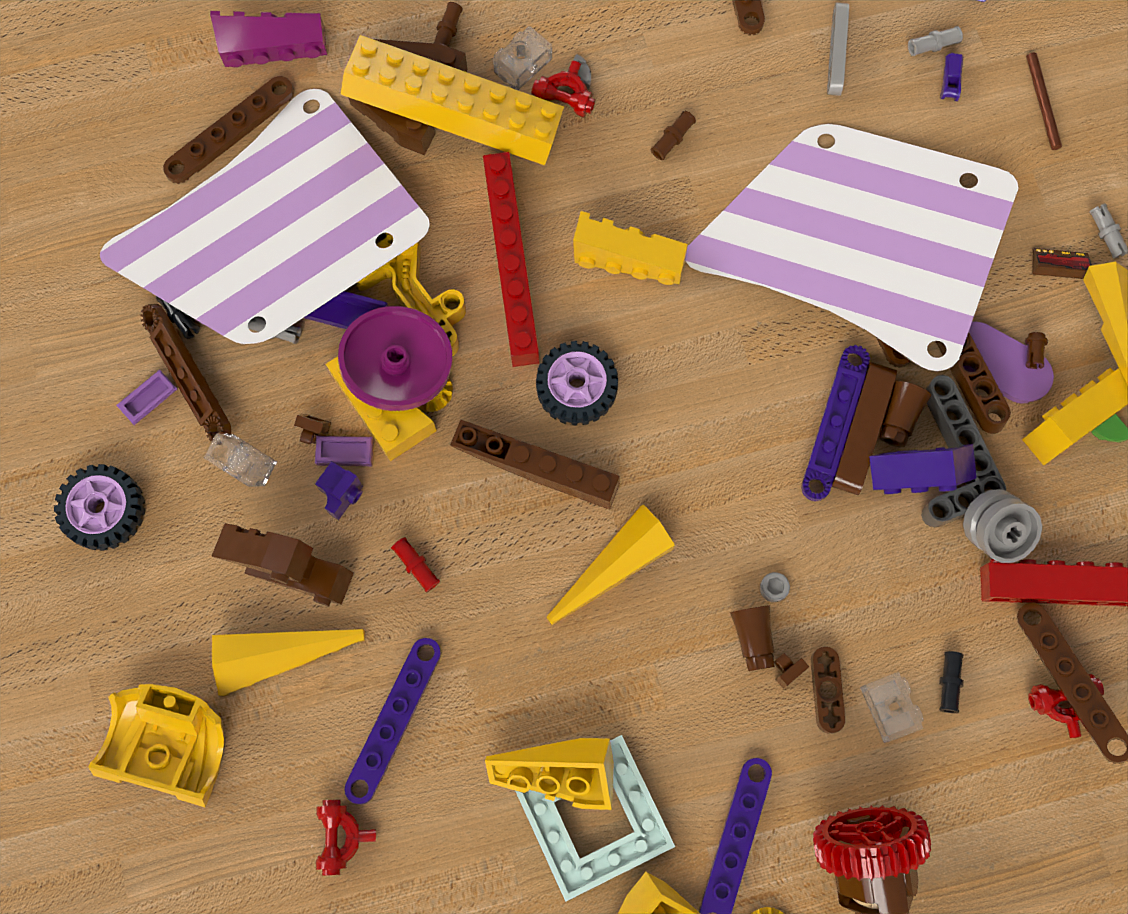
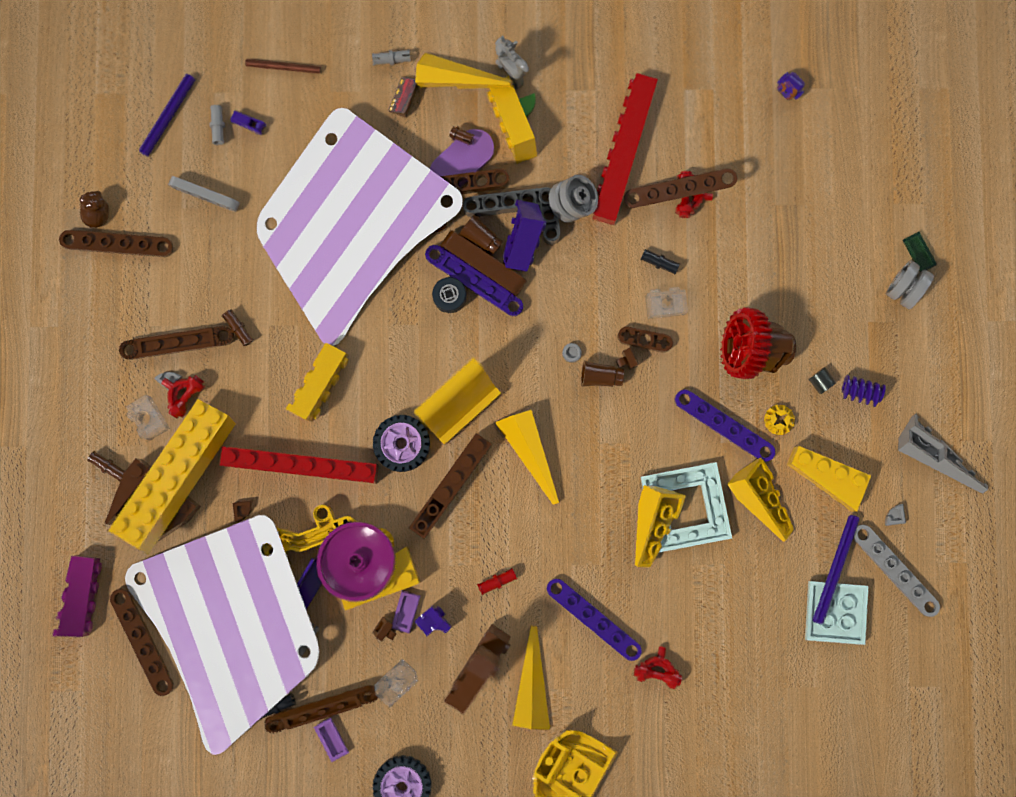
camera: 75 degrees left, 10 degrees up
(432, 205) = (242, 510): none -> reddish brown tile
(631, 68) = (176, 342): none -> reddish brown plate
(657, 434) = (458, 401): none -> yellow panel
(800, 403) = (454, 299): none -> black wheel

